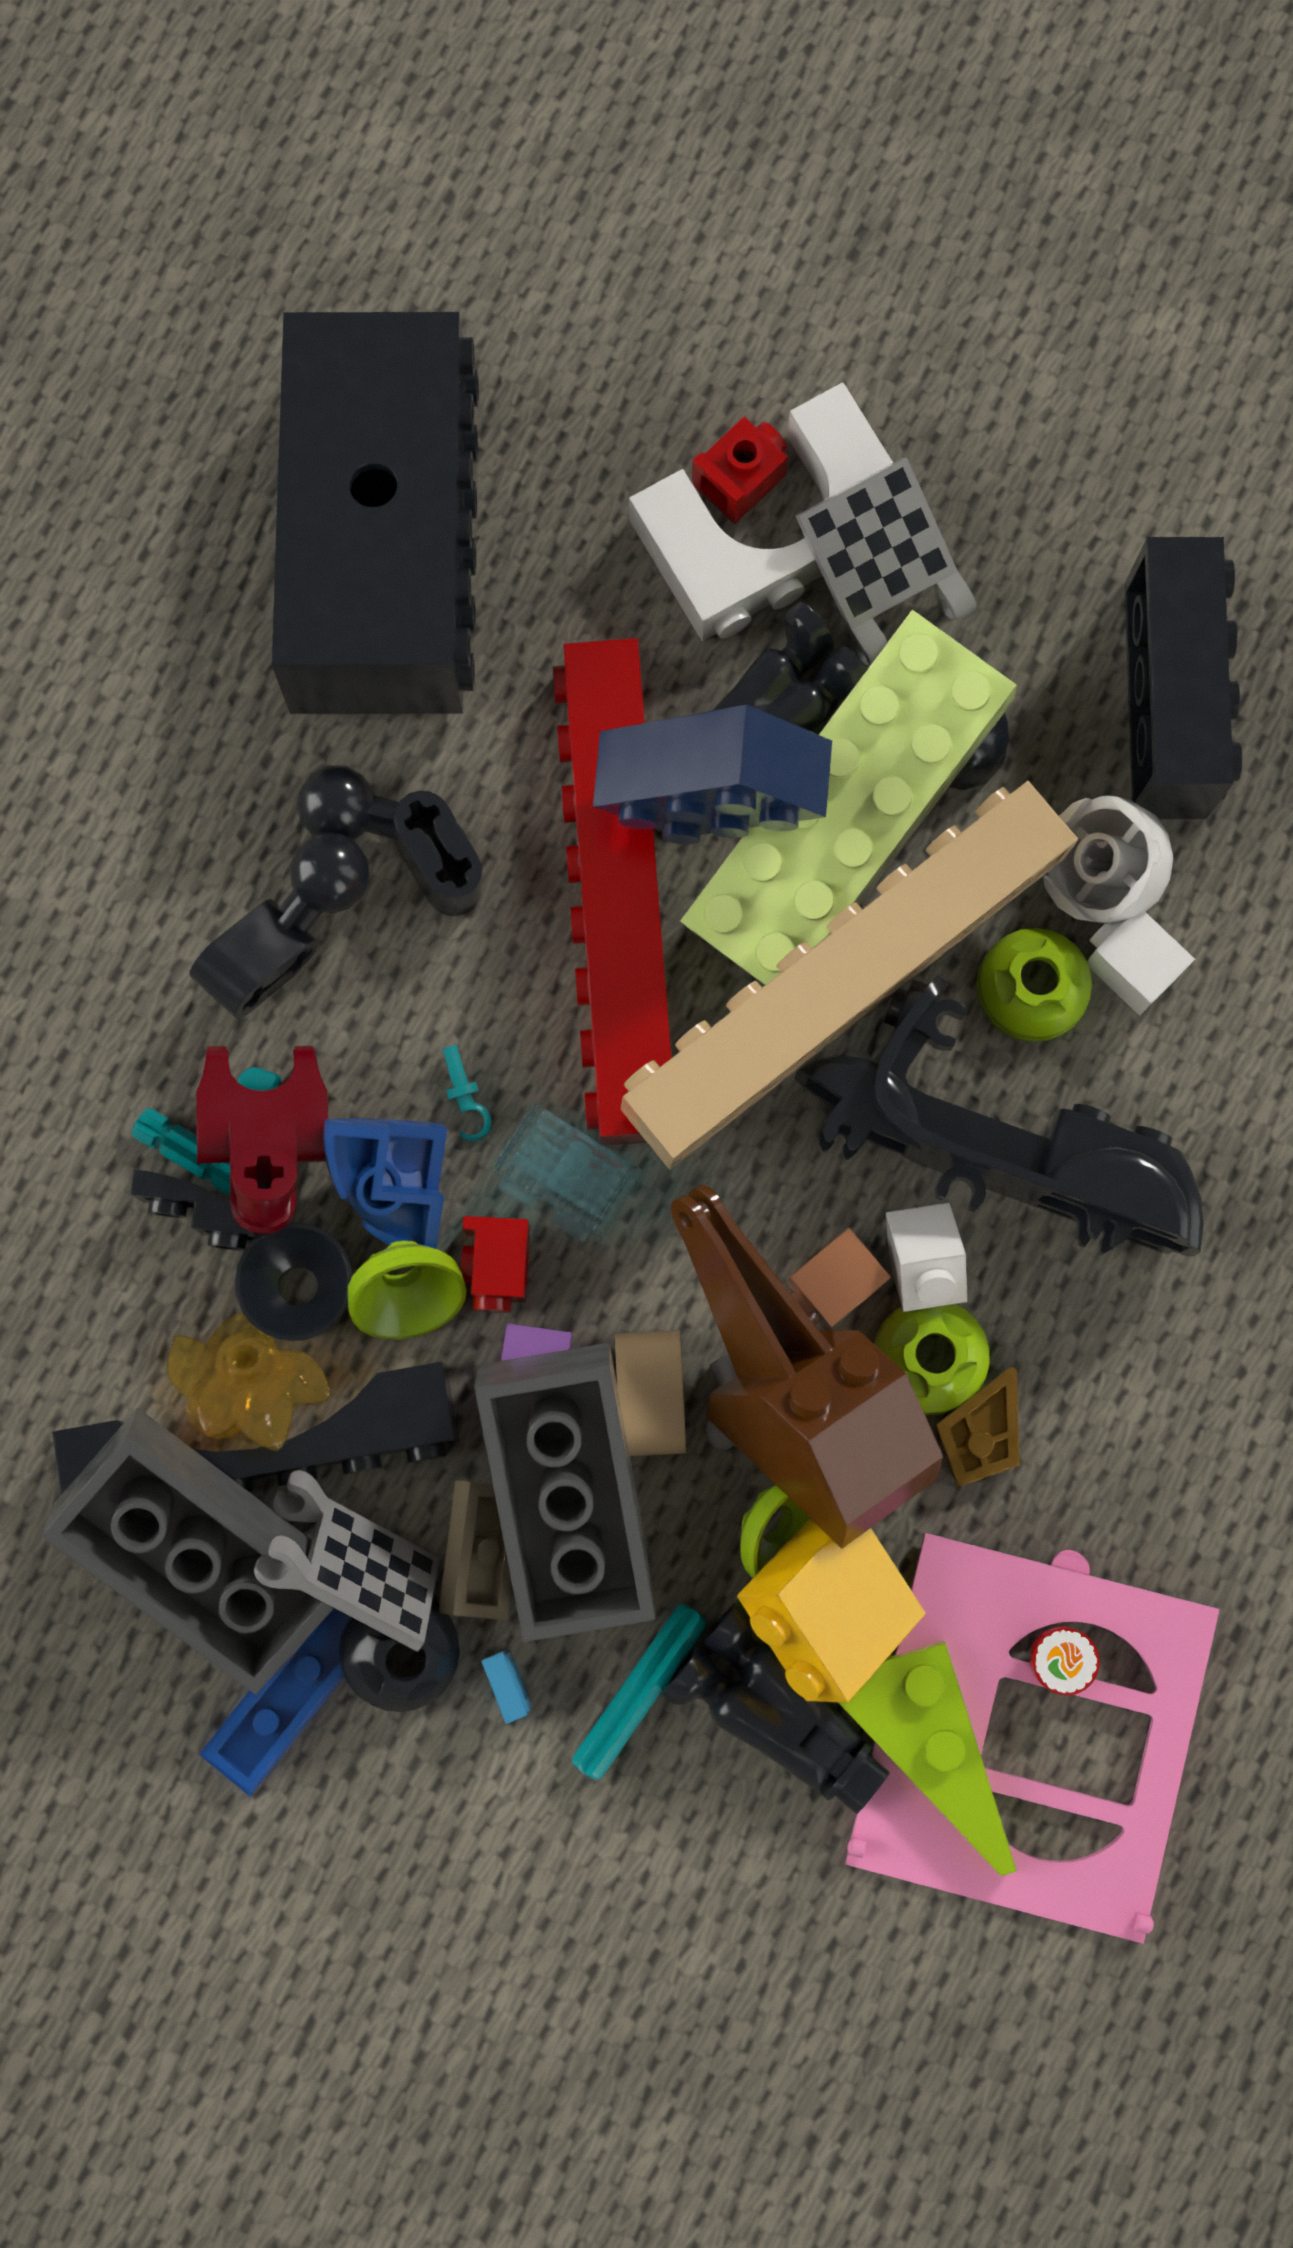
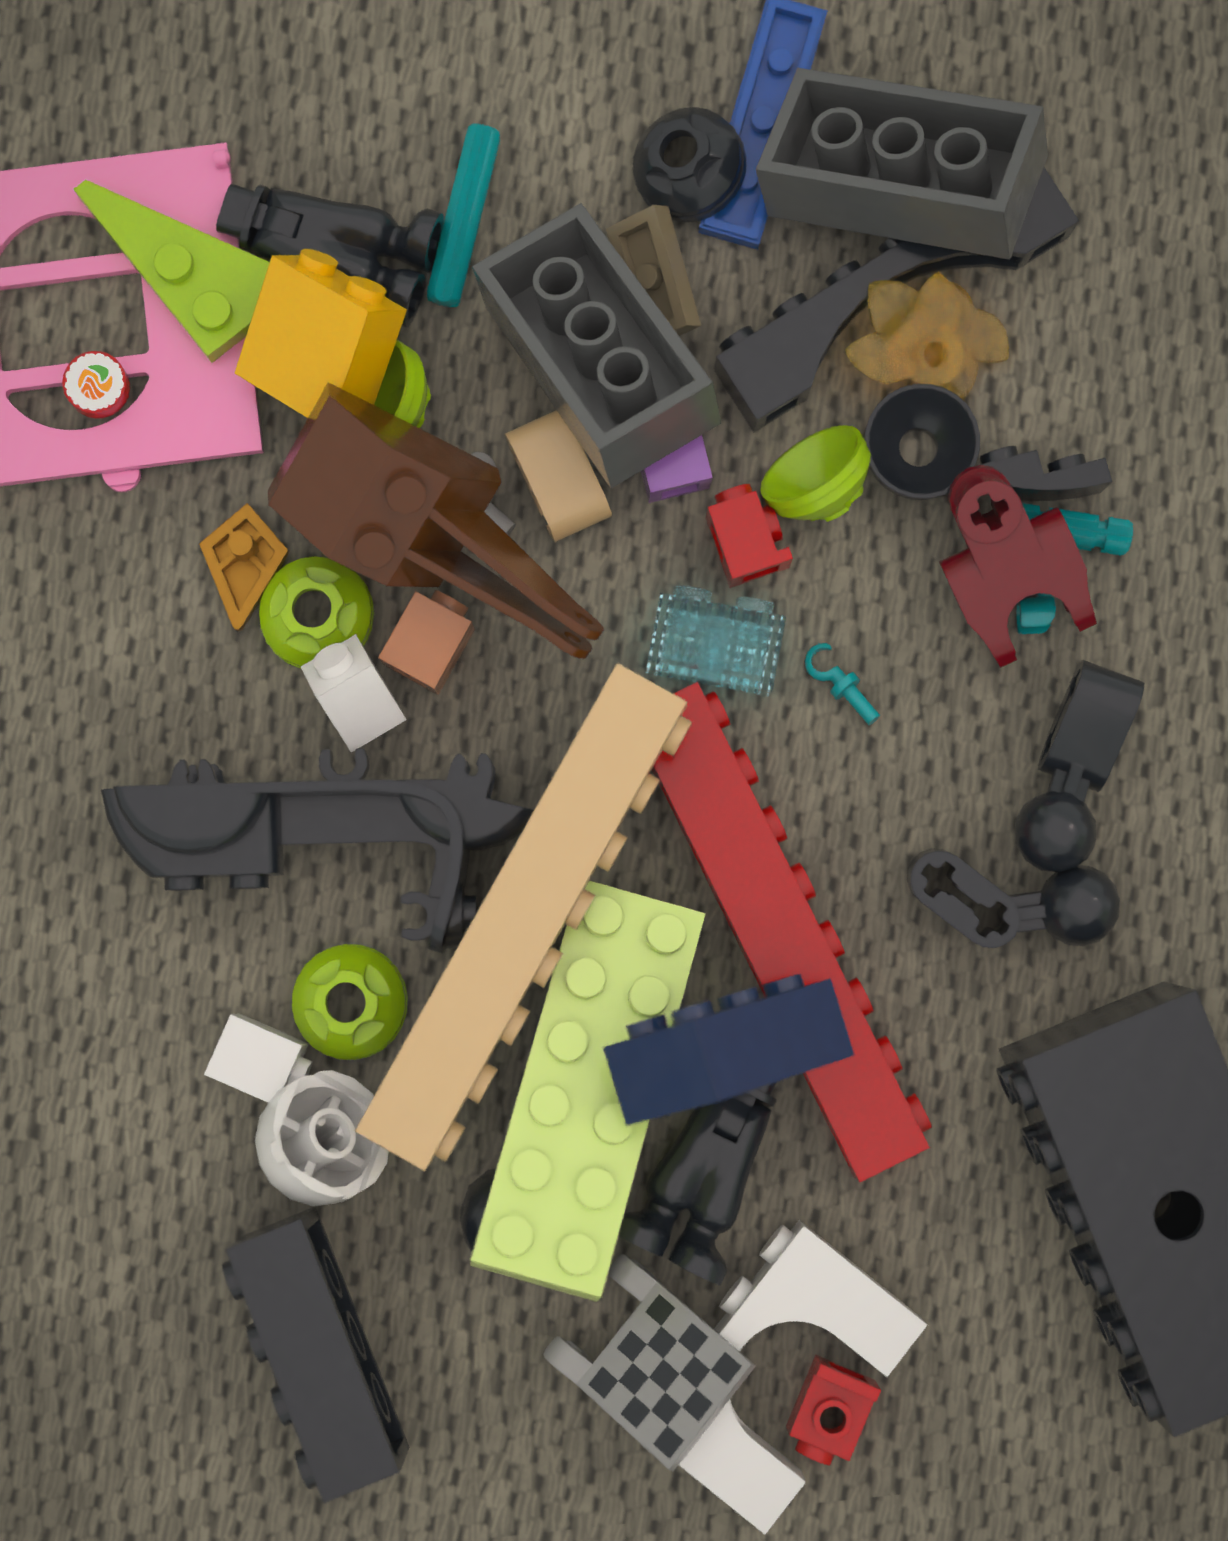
camera: 155 degrees right, 5 degrees up
(352, 1564) = (754, 208): light grey flag -> none
(389, 1174) = (876, 574): blue brick -> none
(507, 1686) = (581, 170): dark azure tile -> none

